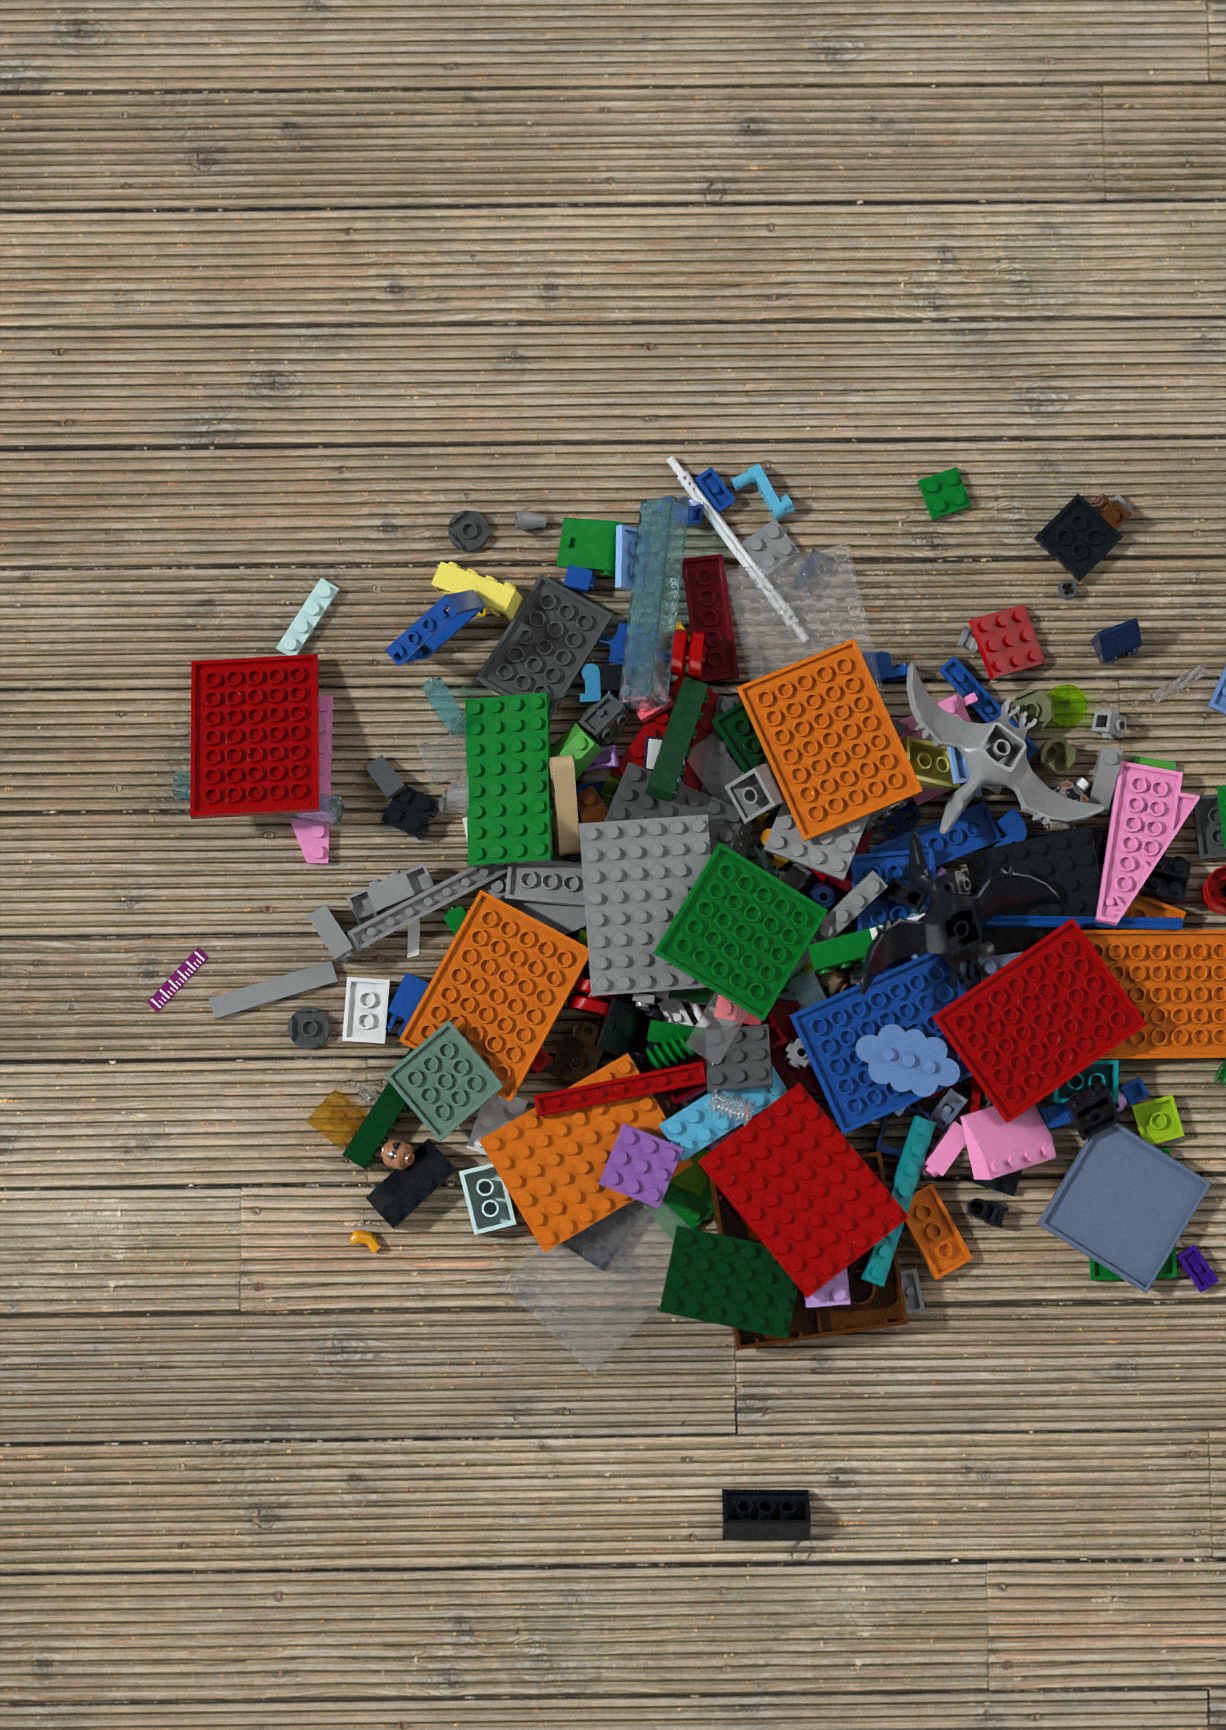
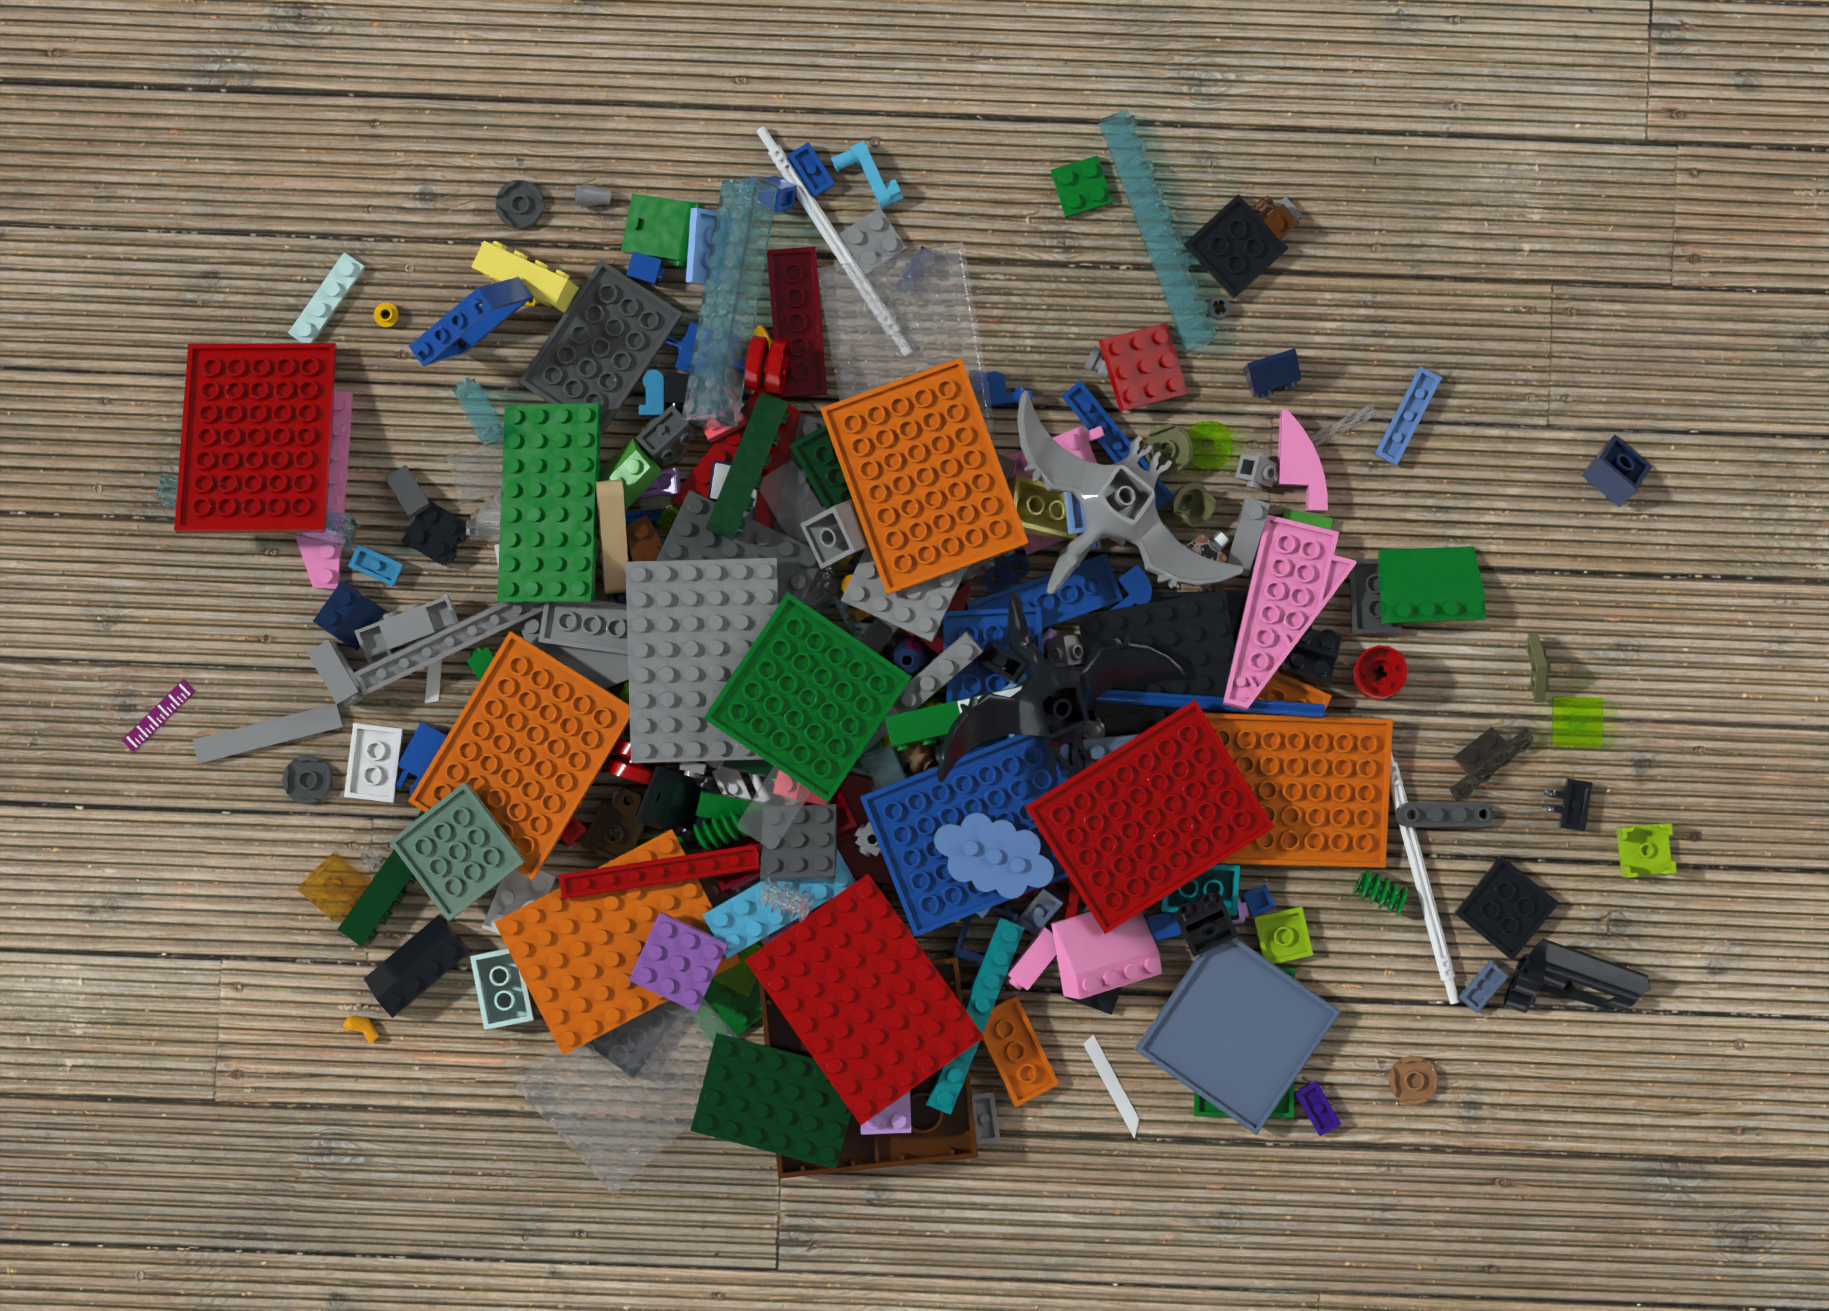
camera: 10 degrees right, 5 degrees up
(337, 883) = (347, 612): none -> dark blue slope
(359, 635) = (394, 314): none -> yellow plate
(360, 841) = (376, 565): none -> dark azure plate
(397, 1154) = (401, 932): nougat head -> none
(988, 1212) = (1080, 1032): black piece -> none
(1010, 527) = (1156, 230): none -> clear light blue brick
(1020, 1261) = (1112, 1084): none -> white sticker
(1145, 716) = (1300, 463): none -> bright pink slope

